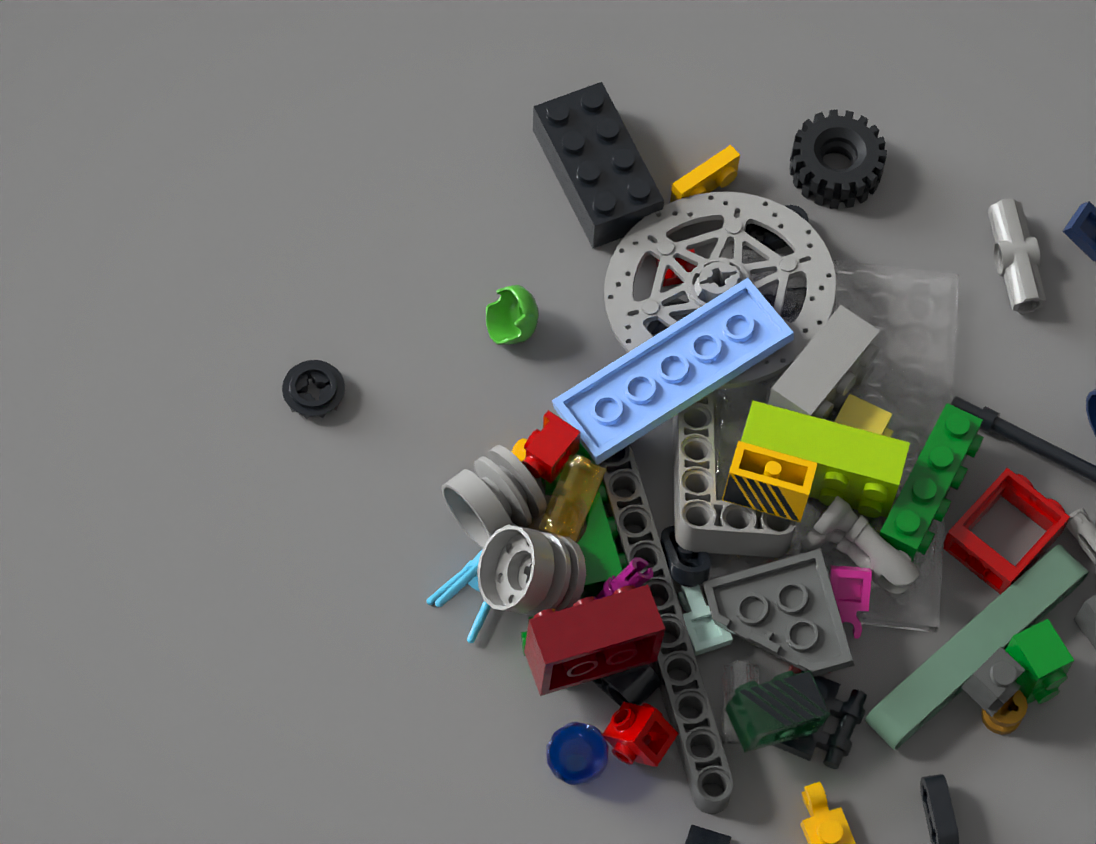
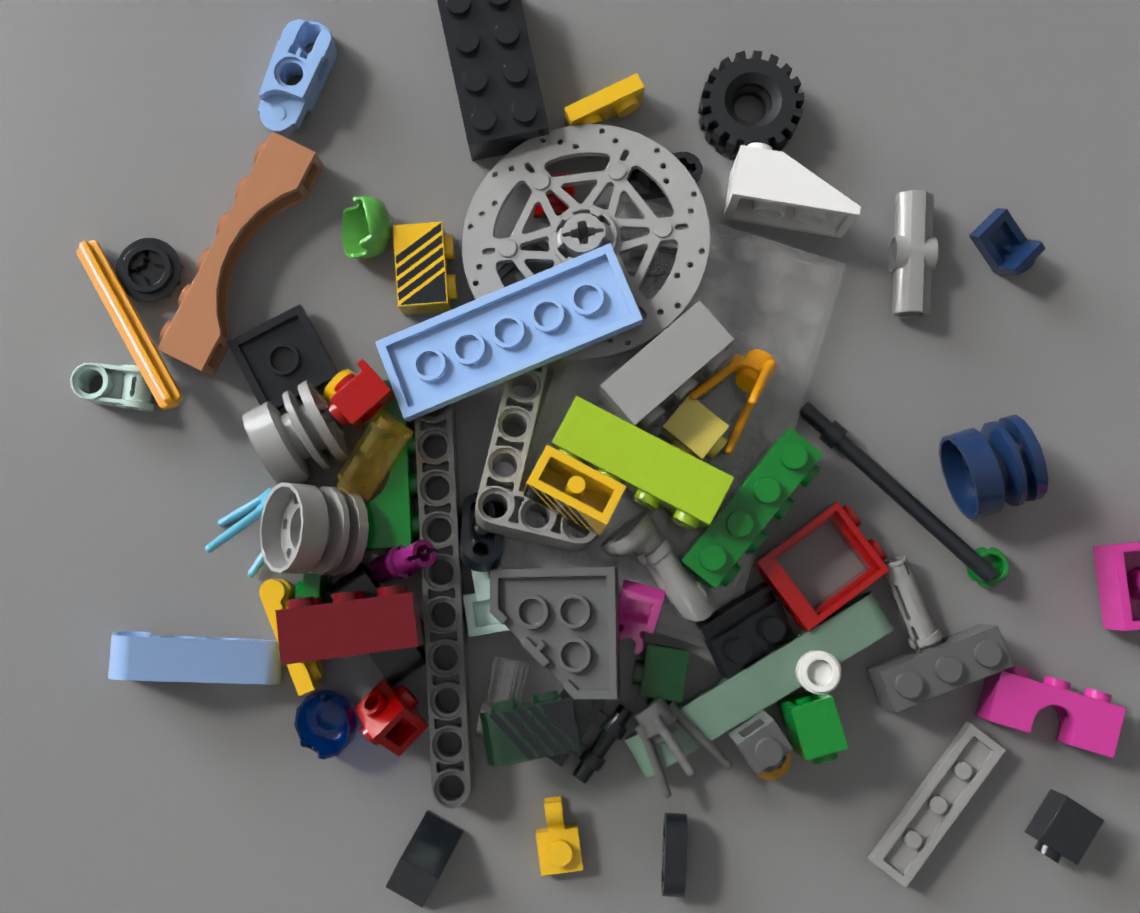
camera: 15 degrees right, 20 degrees up
(310, 492) = (121, 386): none -> light aqua piece
(311, 433) = (129, 325): none -> light orange axle
(410, 224) = (285, 105): none -> light blue piece
(421, 292) = (277, 181): none -> nougat arch
(434, 714) = (193, 659): none -> light blue beam
(456, 437) = (282, 356): none -> black plate
(543, 710) = (274, 597): none -> yellow plate
(573, 340) = (423, 268): none -> brick
(884, 652) = (661, 673): none -> dark green brick
(888, 221) = (781, 193): none -> white slope
(896, 682) = (658, 722): none -> dark grey plant
(900, 374) = (751, 376): none -> light orange plant
(952, 598) = (745, 630): none -> black plate
(1028, 611) = (818, 672): none -> white tile

